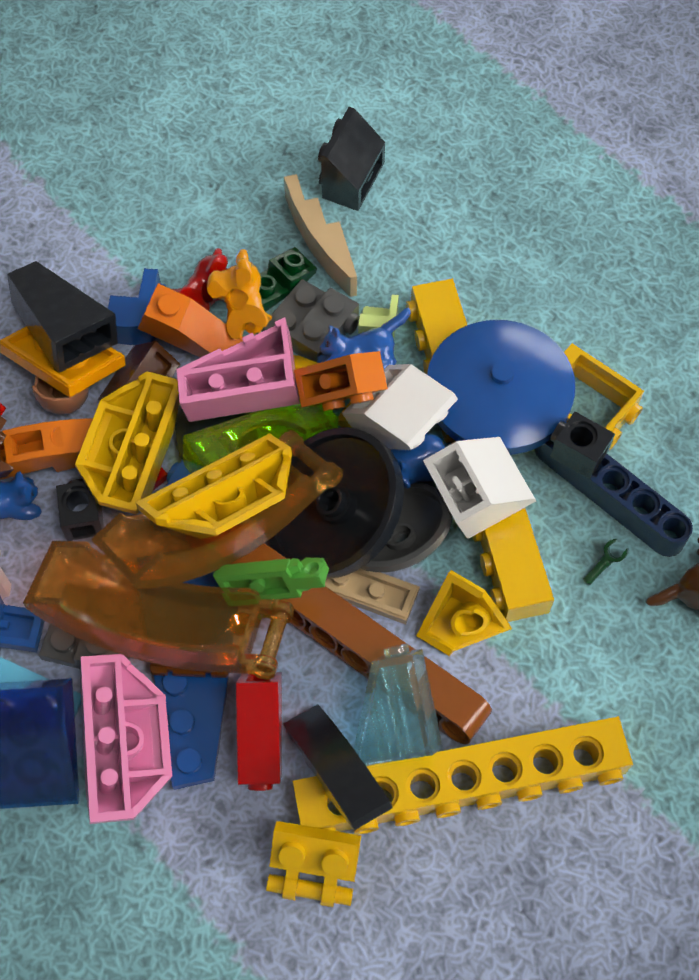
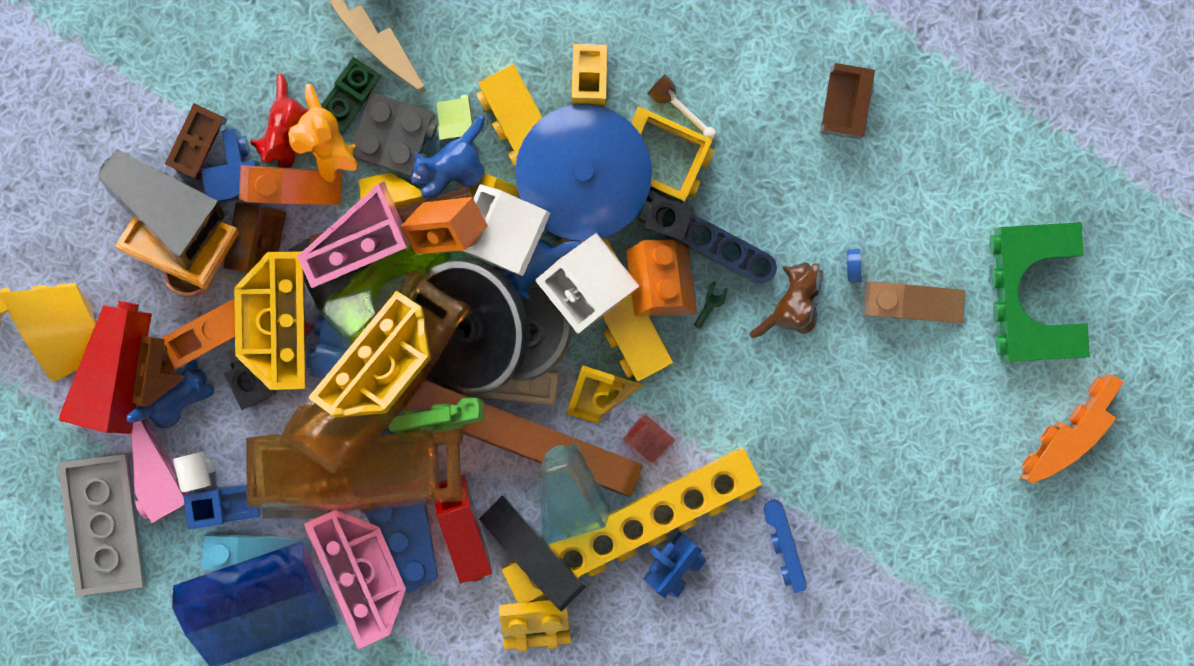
camera: 10 degrees left, 25 degrees up
(114, 271) = (195, 141): none -> reddish brown hinge
(498, 835) = (671, 565): none -> blue hips
(505, 682) = (648, 438): none -> clear red panel
(527, 305) = (589, 74): none -> yellow brick
(562, 509) = (664, 278): none -> orange slope
(600, 346) = (665, 91): none -> hinge
(645, 849) = (784, 543): none -> blue hinge

